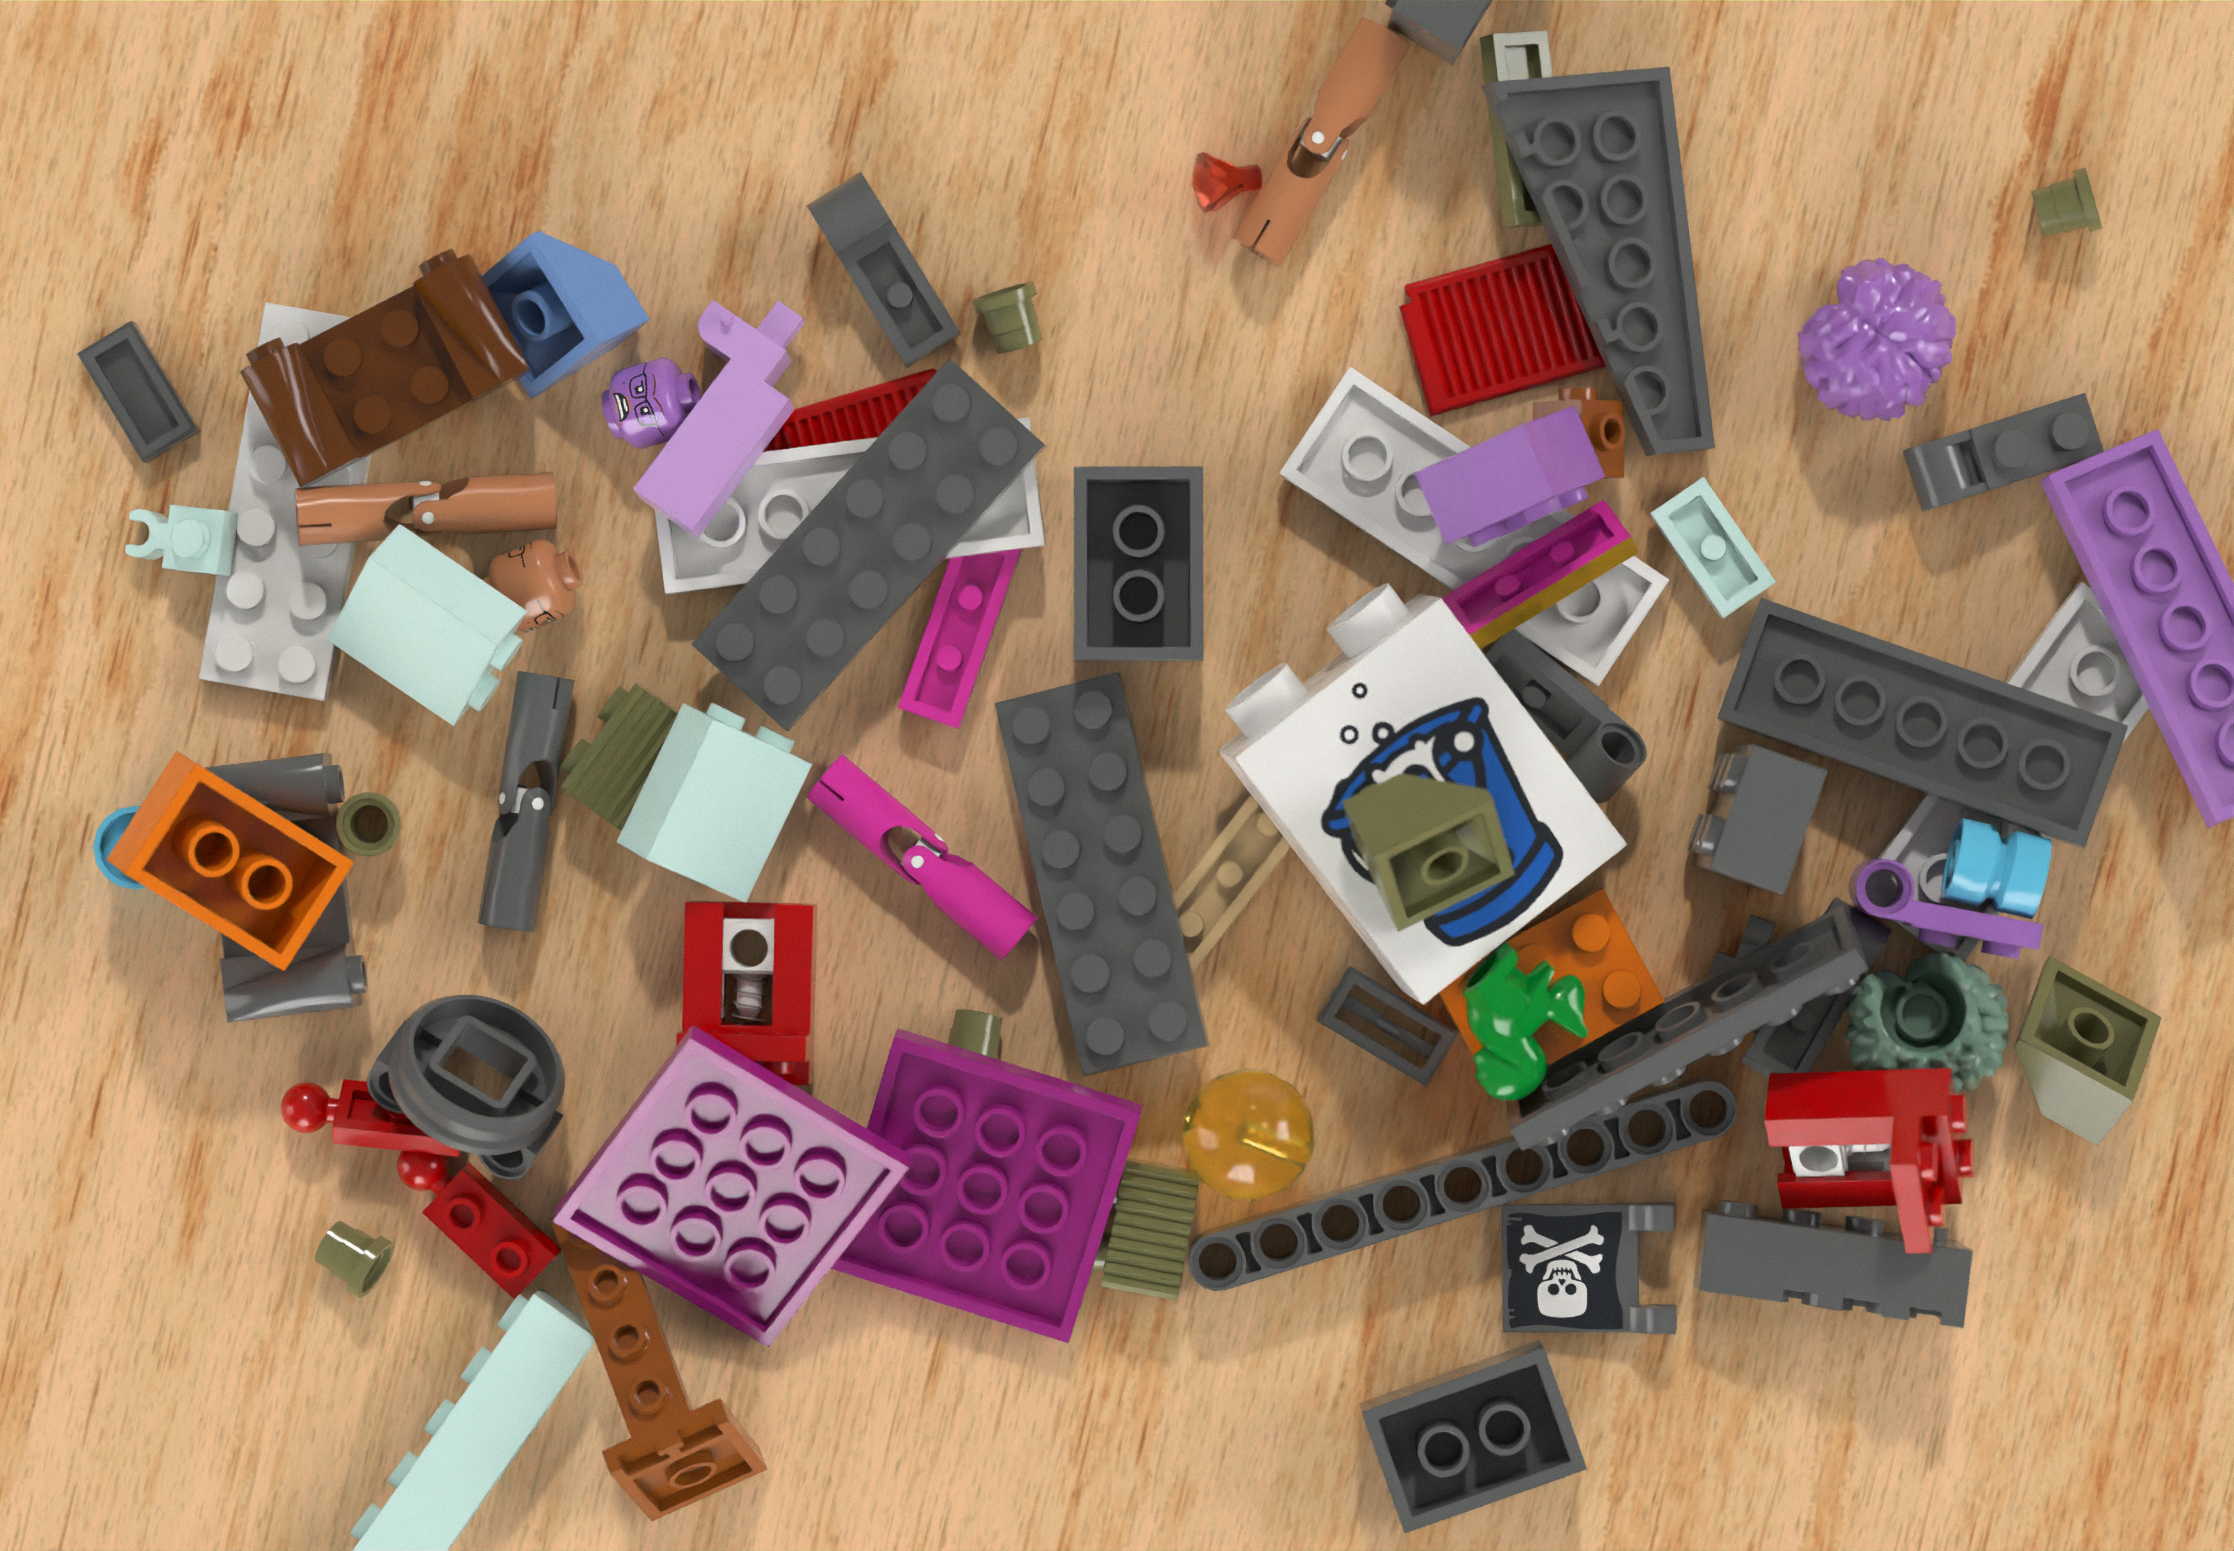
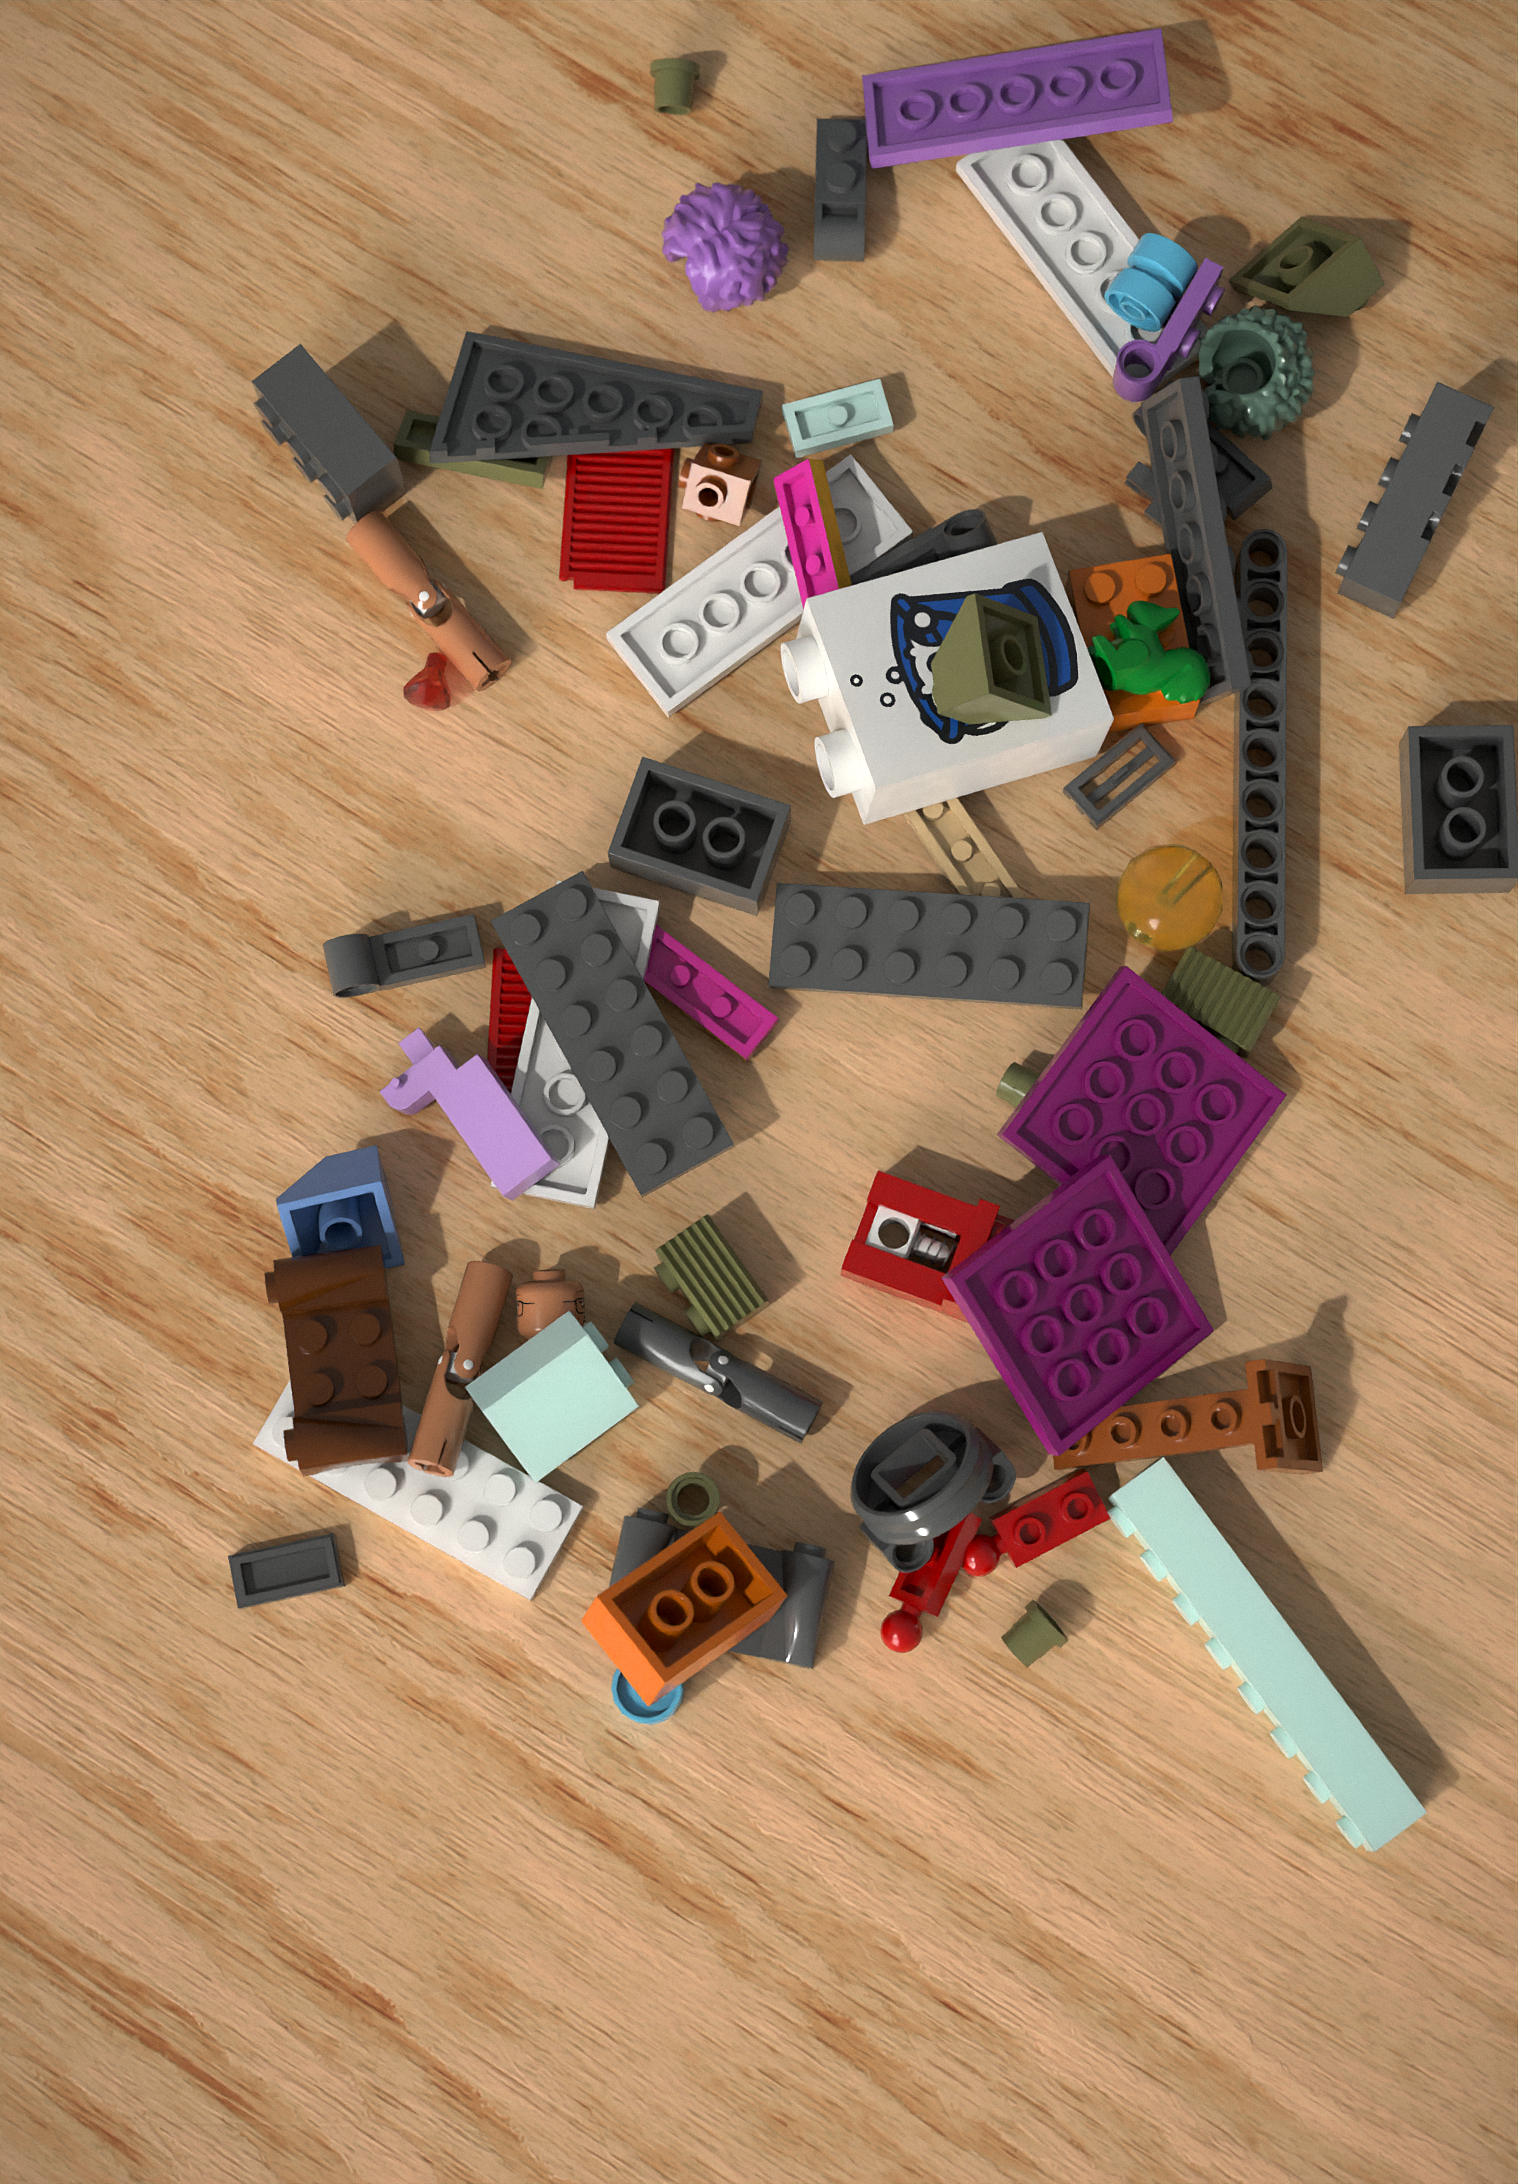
camera: 65 degrees left, 10 degrees down
(188, 539) = (418, 1566): light aqua plate -> none
(649, 402) = (441, 1167): medium lavender head -> none
(715, 800) = (769, 1218): light aqua brick -> none
(949, 880) = (900, 1061): dark pink piece -> none
(1010, 317) = (475, 873): olive piece -> none
(1511, 479) = (731, 525): medium lavender brick -> none
(1580, 1268) = (1353, 694): flag -> none
(1756, 817) = (1054, 436): dark grey brick -> none
(1872, 1143) = (1330, 435): red brick -> none
(1922, 723) = (1023, 304): dark grey plate -> none

